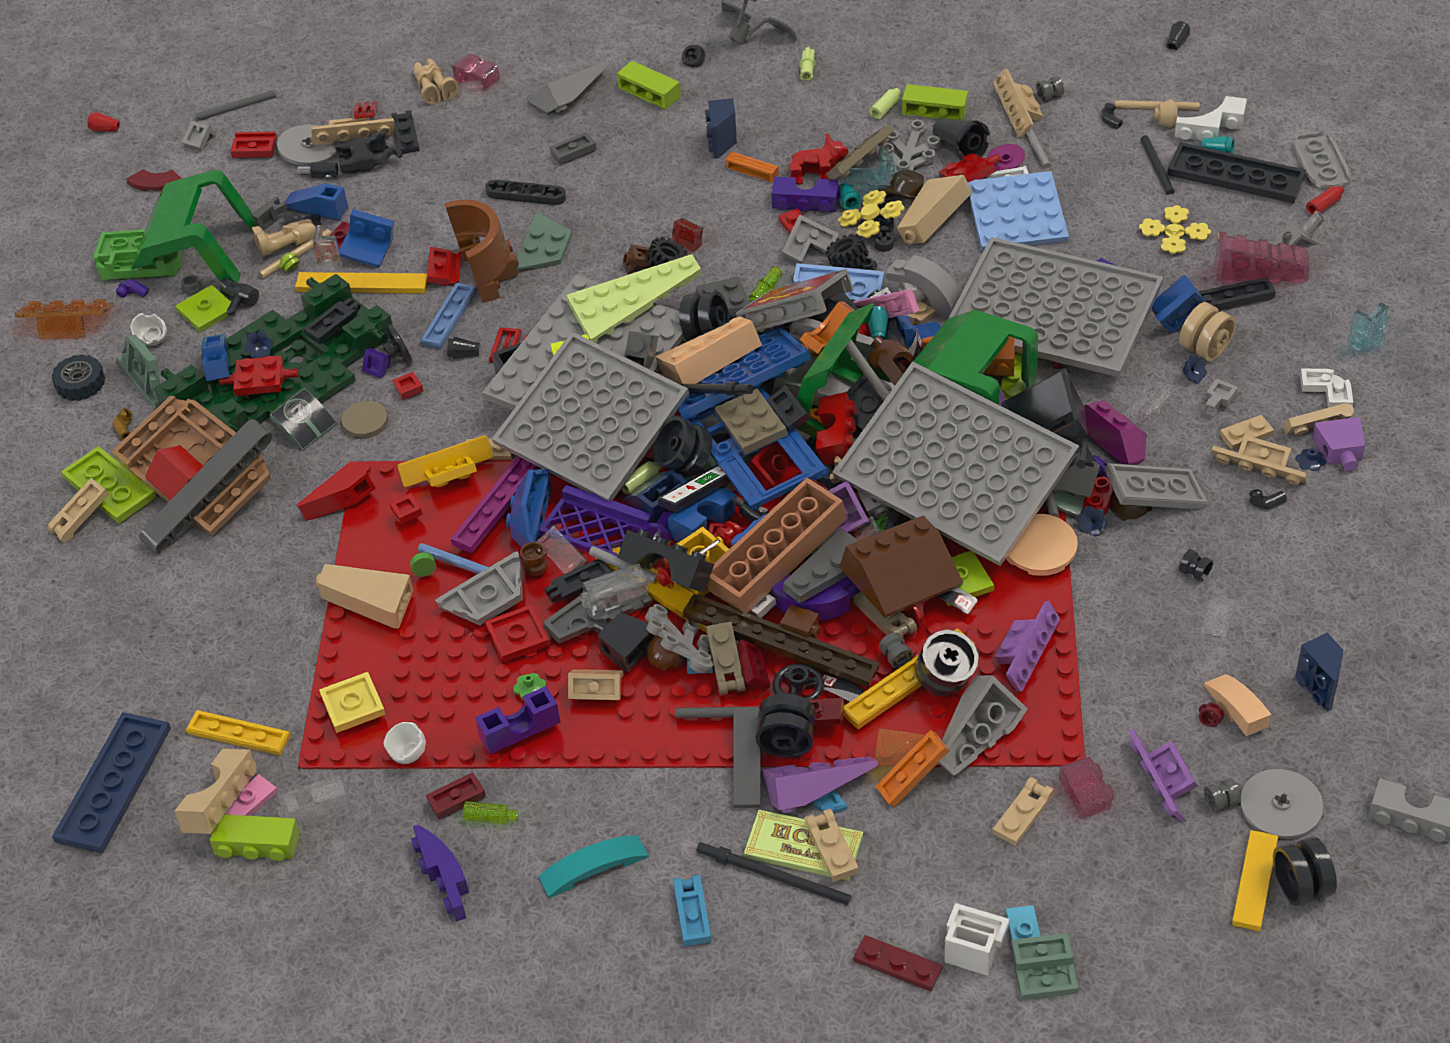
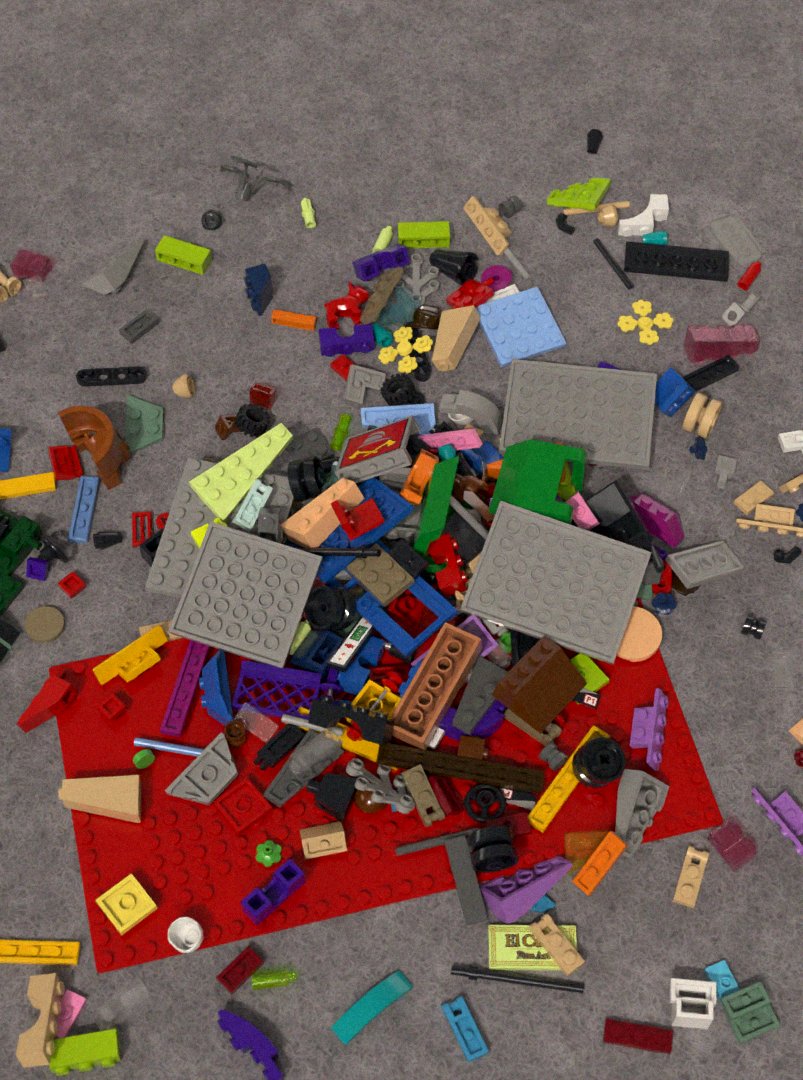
camera: 20 degrees left, 10 degrees up
(602, 212) = (184, 386): none -> tan cone
(617, 337) = (251, 505): none -> light aqua plate
(739, 363) = (359, 519): none -> red bracket
(872, 121) = (390, 257): none -> dark purple arch
(1015, 399) = (582, 513): none -> bright pink plate
(1140, 88) = (580, 196): none -> lime plate

